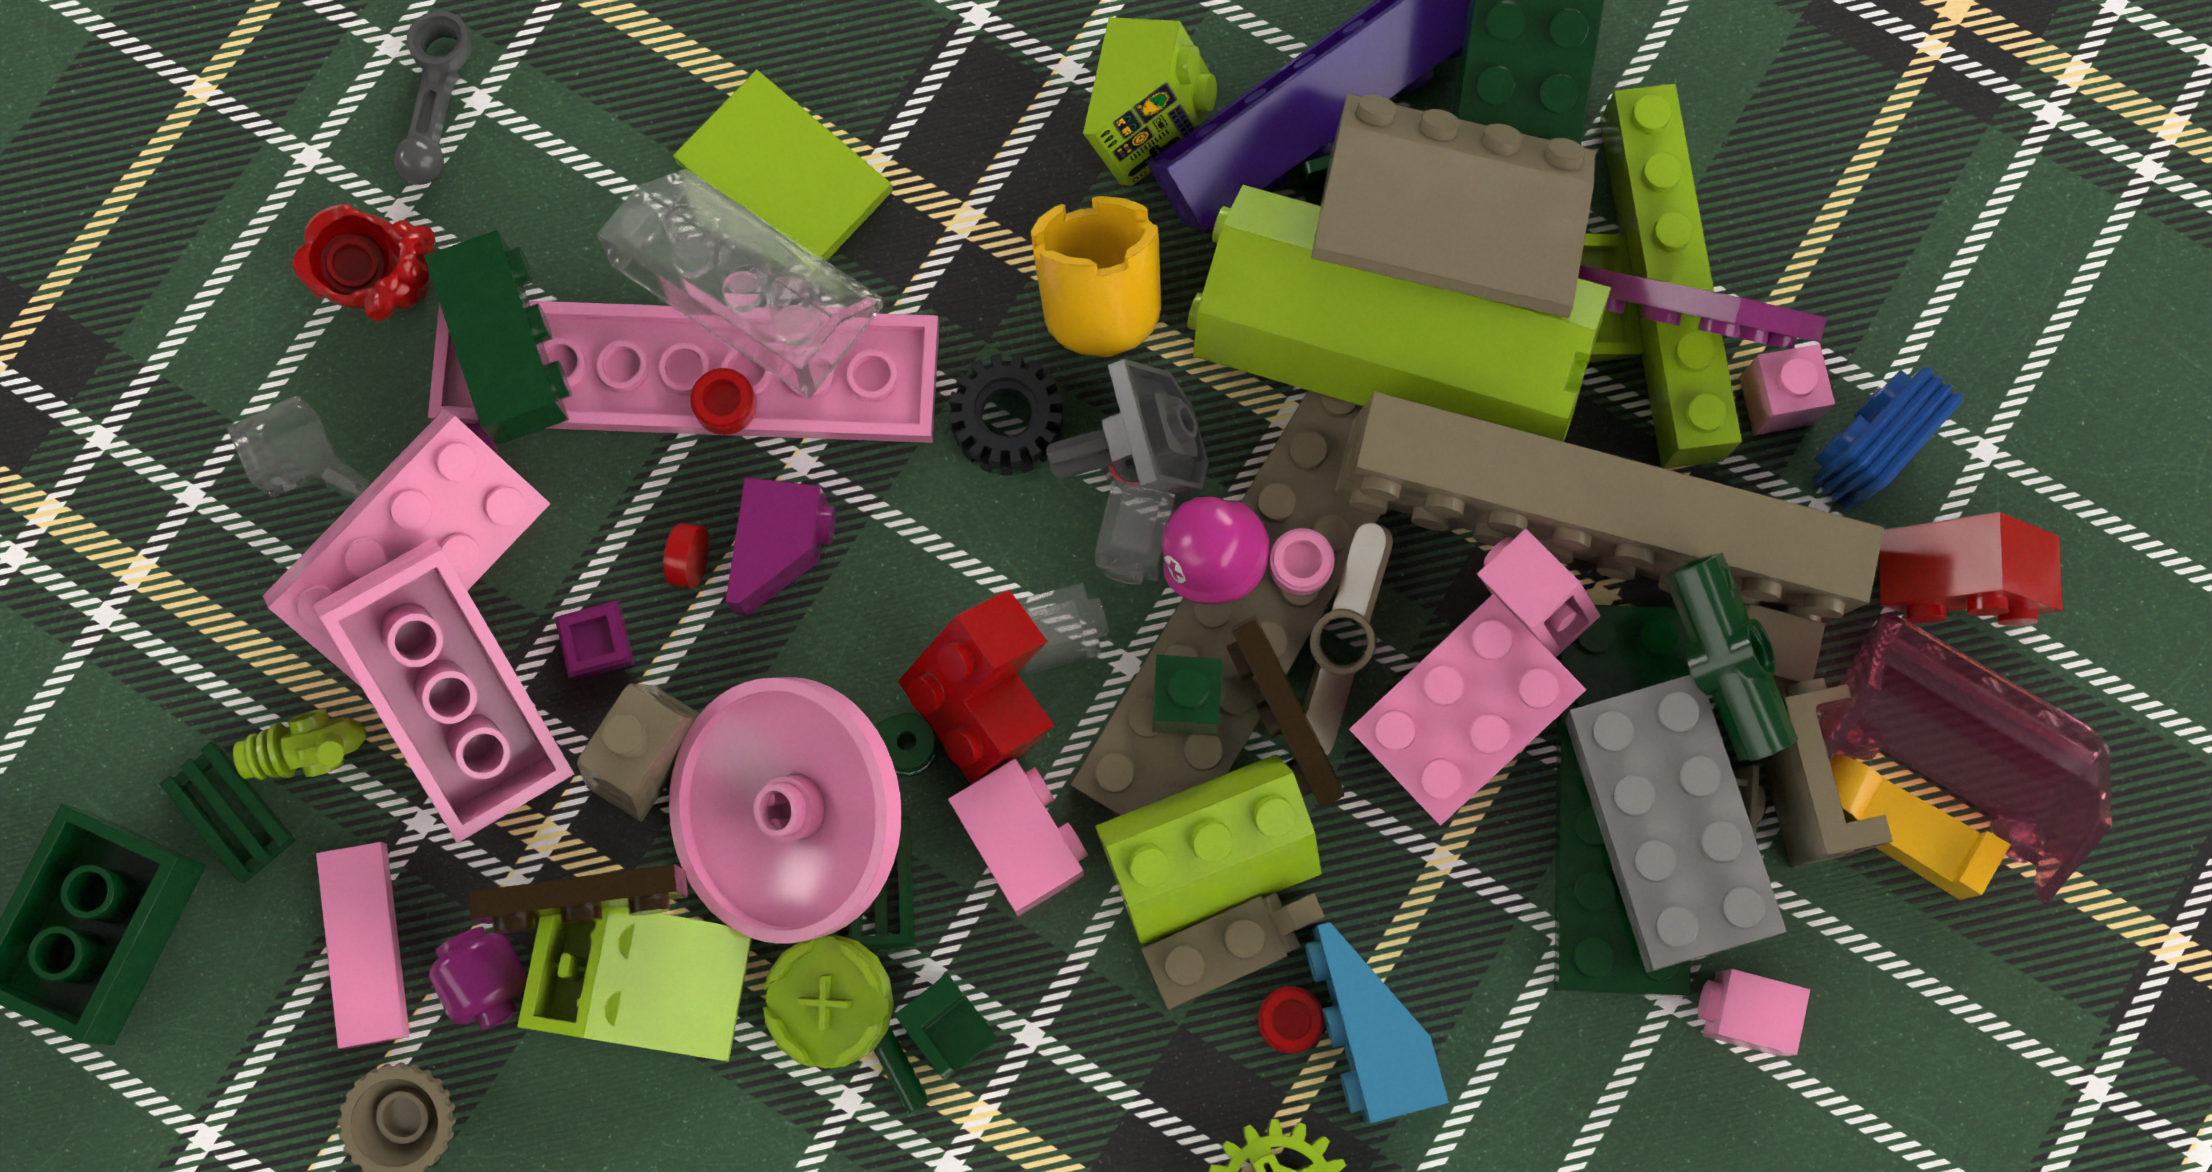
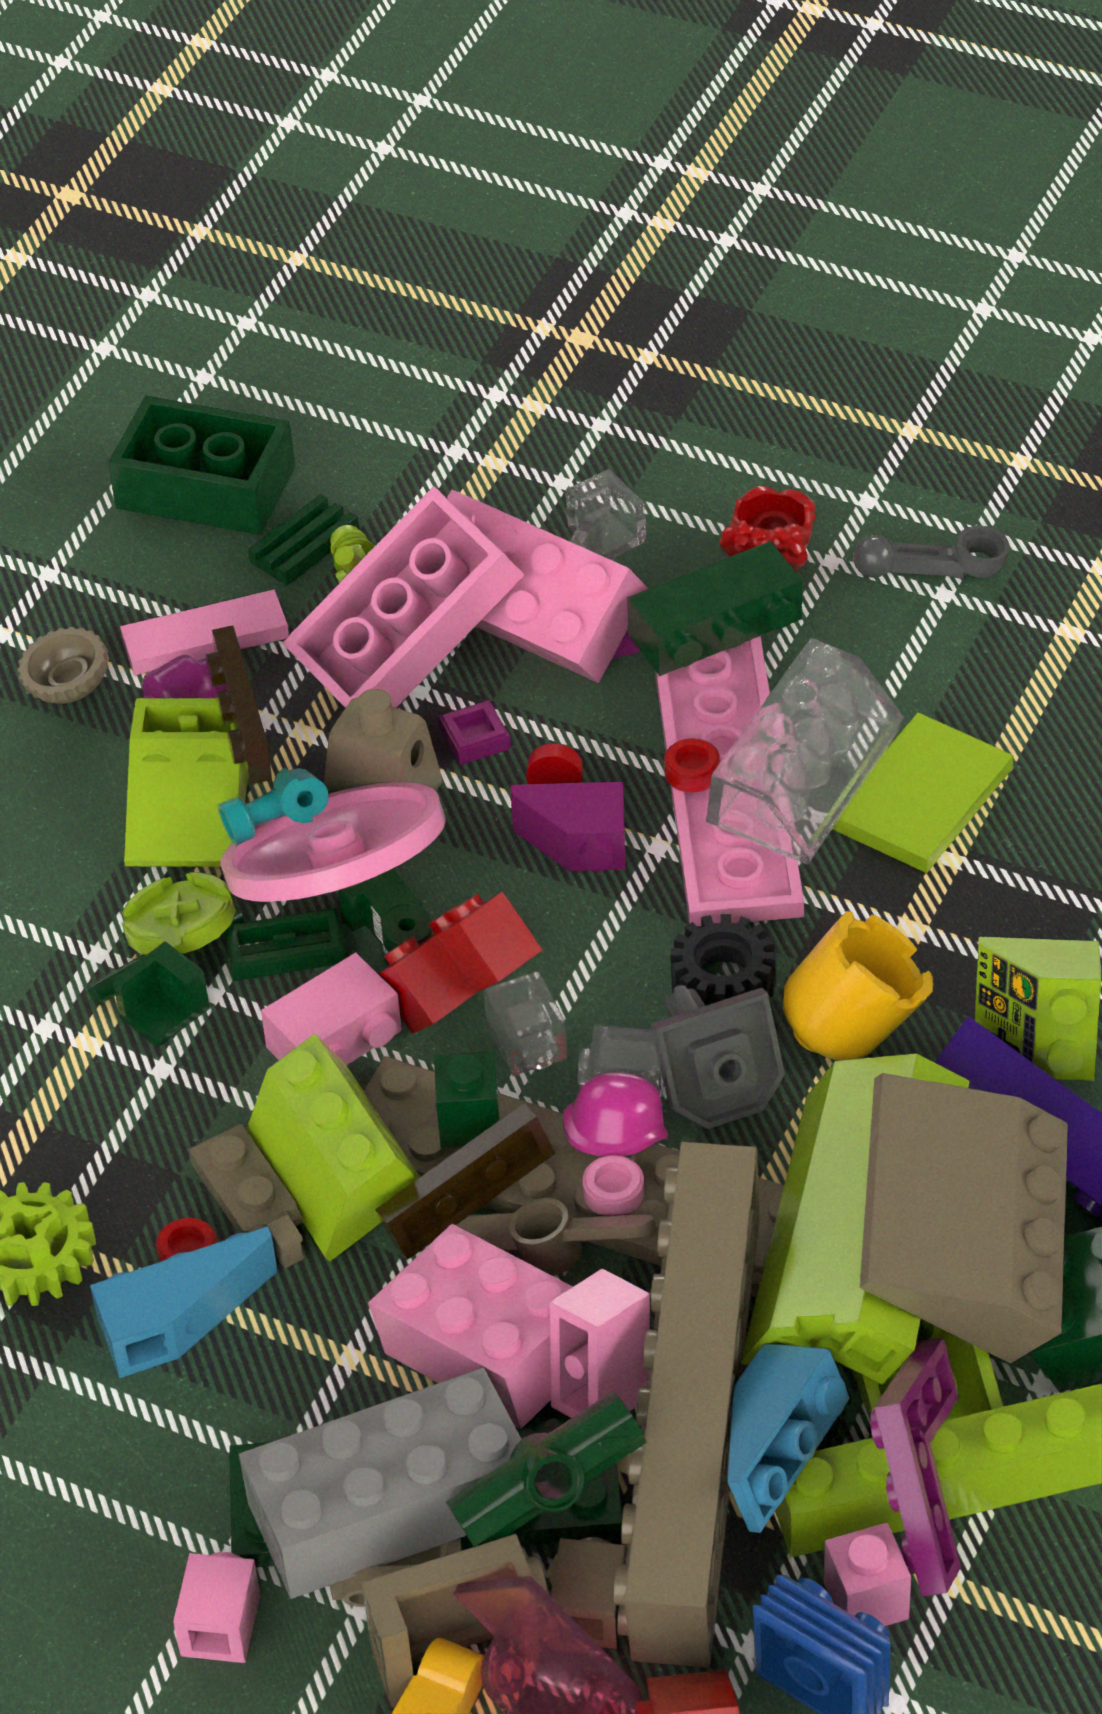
camera: 85 degrees right, 30 degrees down
(704, 847) = (294, 795): none -> teal leg
(1640, 423) = (777, 1422): none -> dark azure slope

